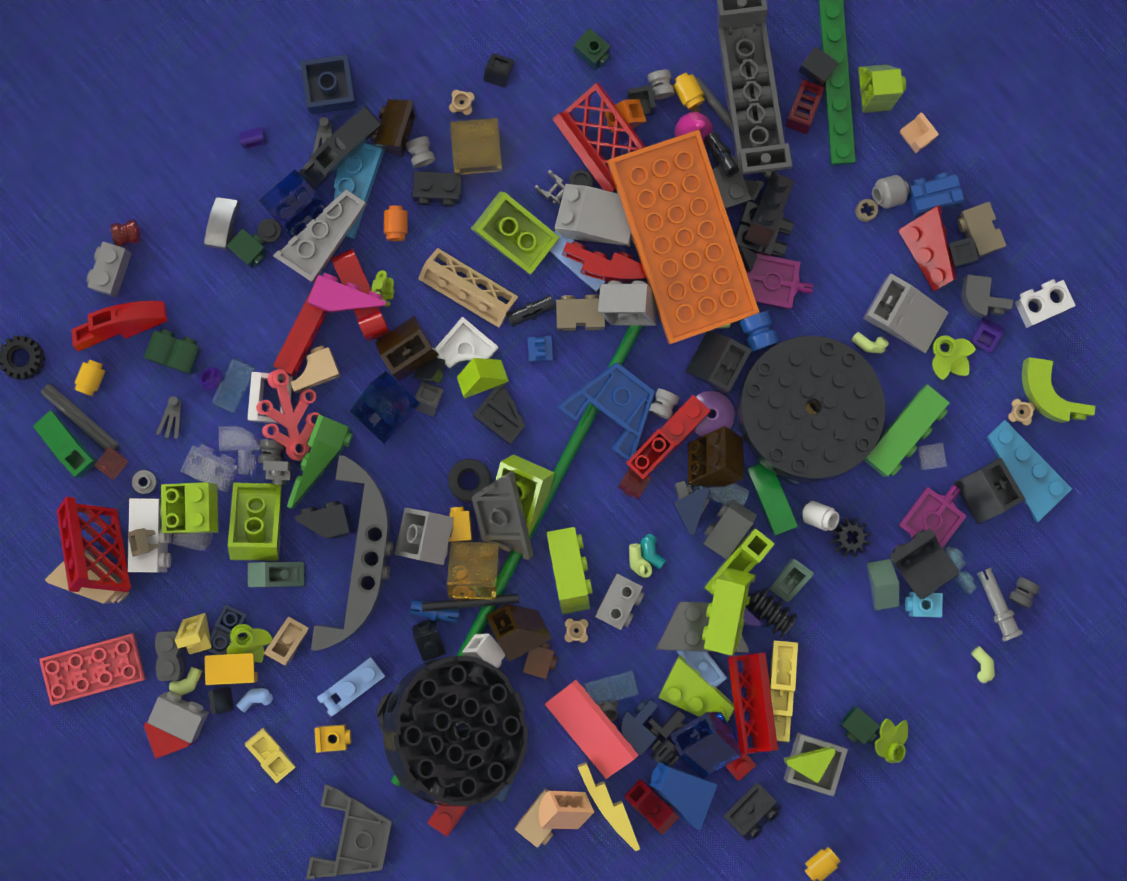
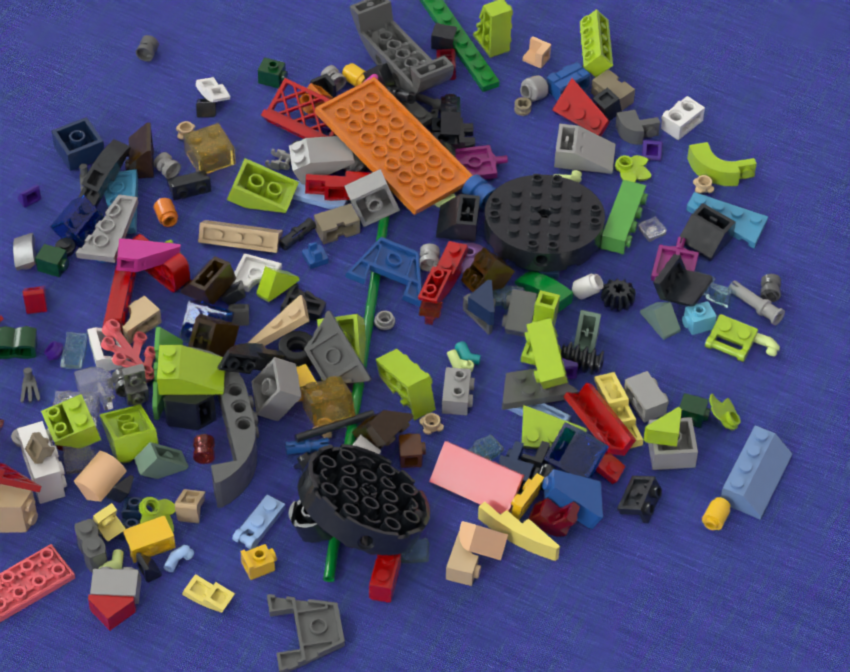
camera: 20 degrees left, 35 degrees down
(205, 573) = (99, 476): none -> light nougat brick
(213, 292) = (35, 299): none -> red slope
(223, 595) = (121, 490): none -> black slope
(325, 574) = (203, 448): none -> clear red wheel
(332, 499) = (188, 371): none -> lime slope
(378, 442) = (213, 334): none -> dark brown slope
(404, 496) = (248, 357): none -> black slope
(470, 444) = (288, 320): none -> tan wing
(512, 51) = (211, 90): none -> white slope
(581, 464) = (384, 320): none -> light grey plate
(632, 773) = (522, 502): none -> yellow plate
(718, 109) = (384, 74): none -> black panel
(817, 690) = (646, 396): none -> light grey brick
(888, 829) = (756, 472): none -> medium blue slope
(953, 639) = (733, 332): none -> lime plate
(993, 153) = (596, 43): none -> lime brick

